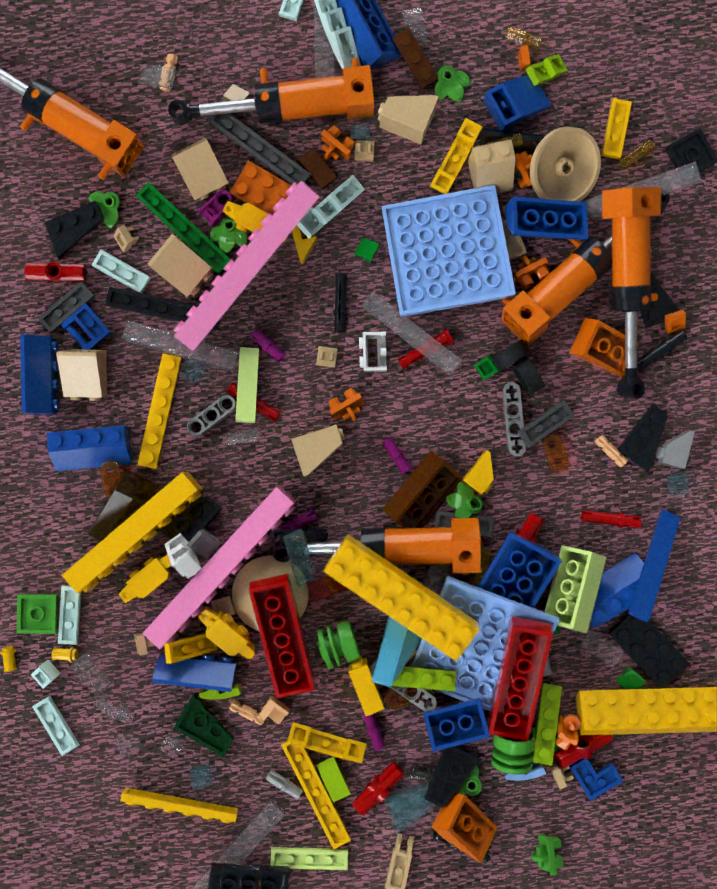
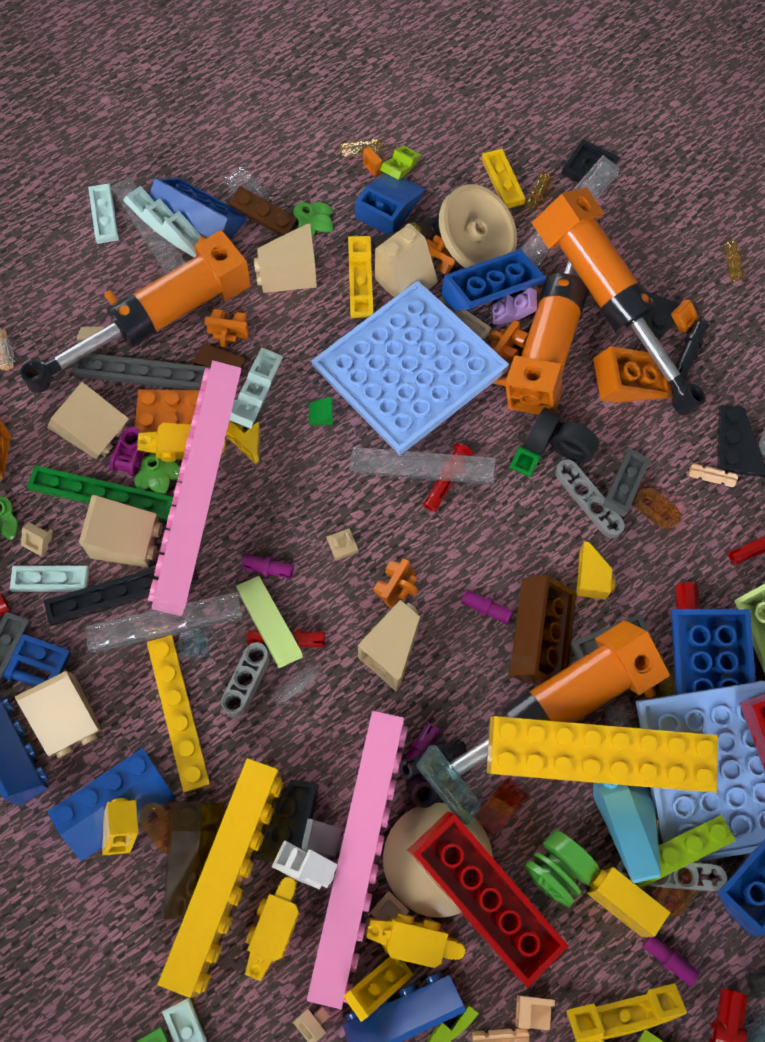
camera: 30 degrees left, 20 degrees down
(86, 466) = (119, 826): none -> yellow slope
(340, 300) = (337, 501): black pin -> none
(360, 131) = (245, 301): clear light blue slope -> none
(364, 150) = (260, 320): tan tile -> none
(381, 351) = (400, 505): white window -> none
(462, 501) = (596, 614): bright green plate -> none
(554, 247) = (515, 308): none -> lavender slope

